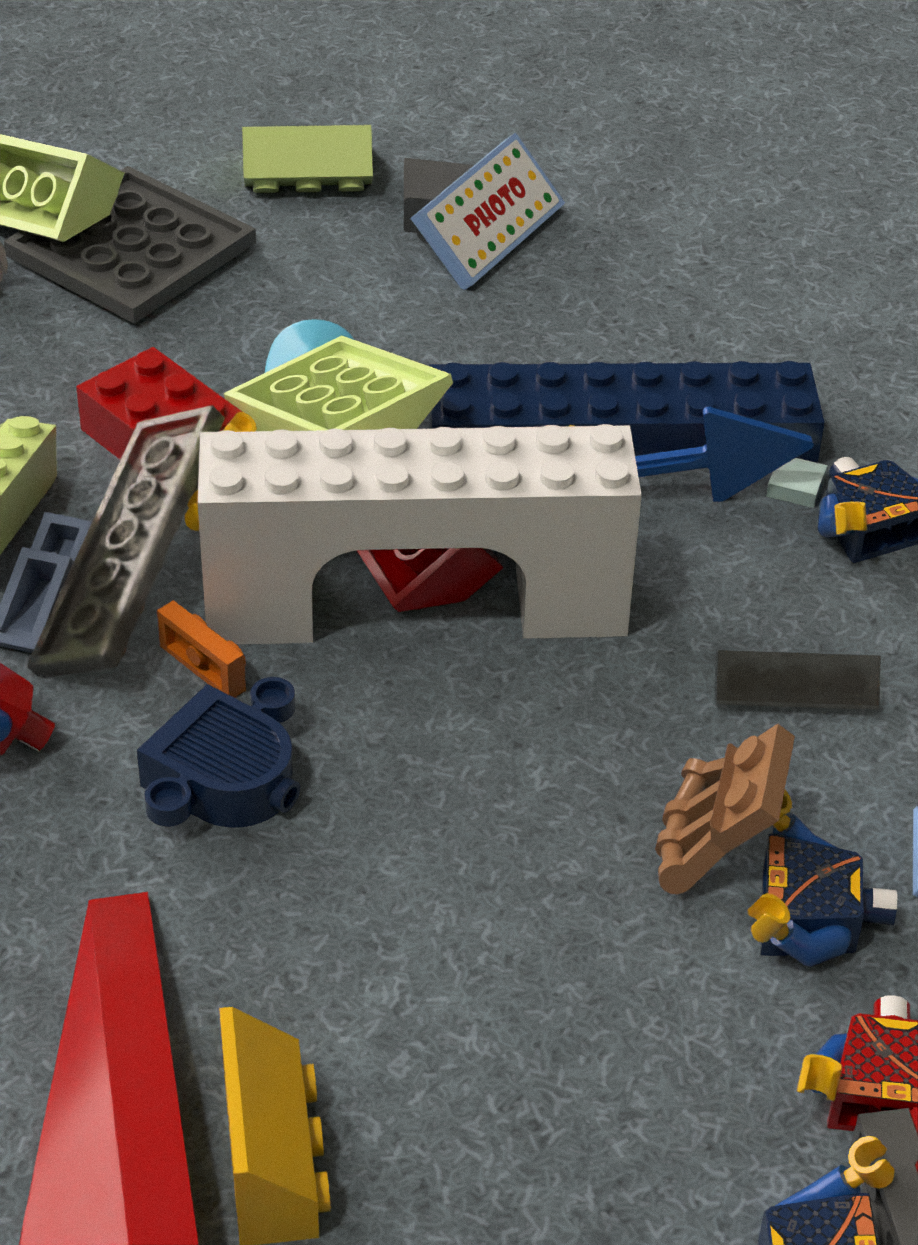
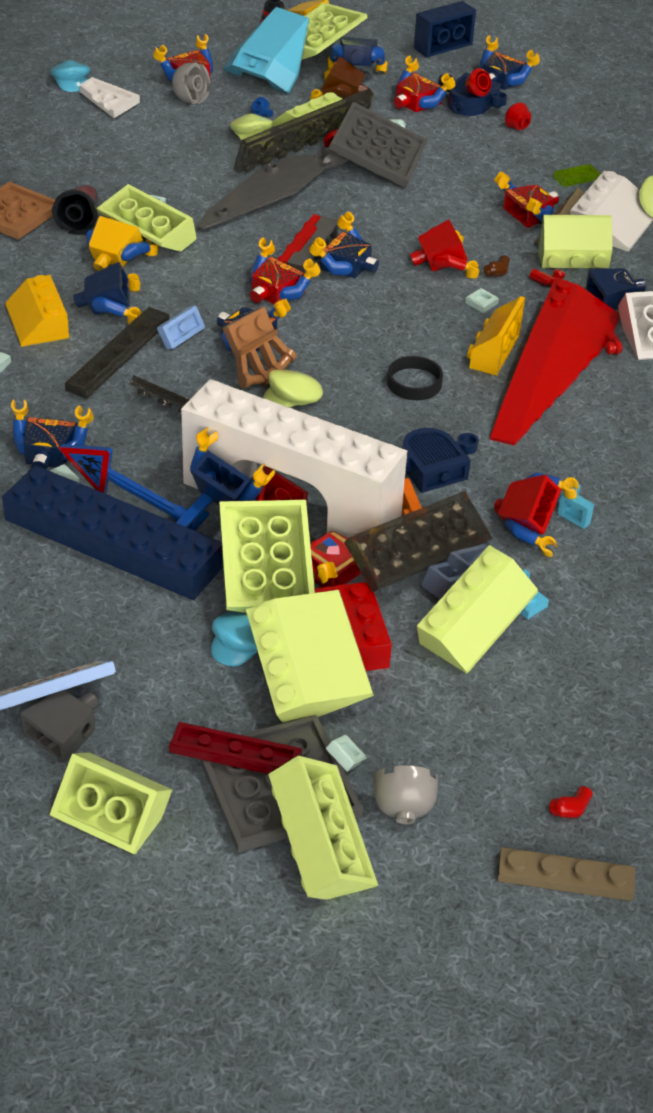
camera: 150 degrees left, 0 degrees up
(64, 286) = (346, 752): none -> light aqua tile
(189, 318) = (308, 654): none -> yellowish green slope
(200, 230) = (230, 748): none -> dark red tile
(388, 912) = (417, 363): none -> black tyre
(598, 805) = (292, 388): none -> yellowish green piece

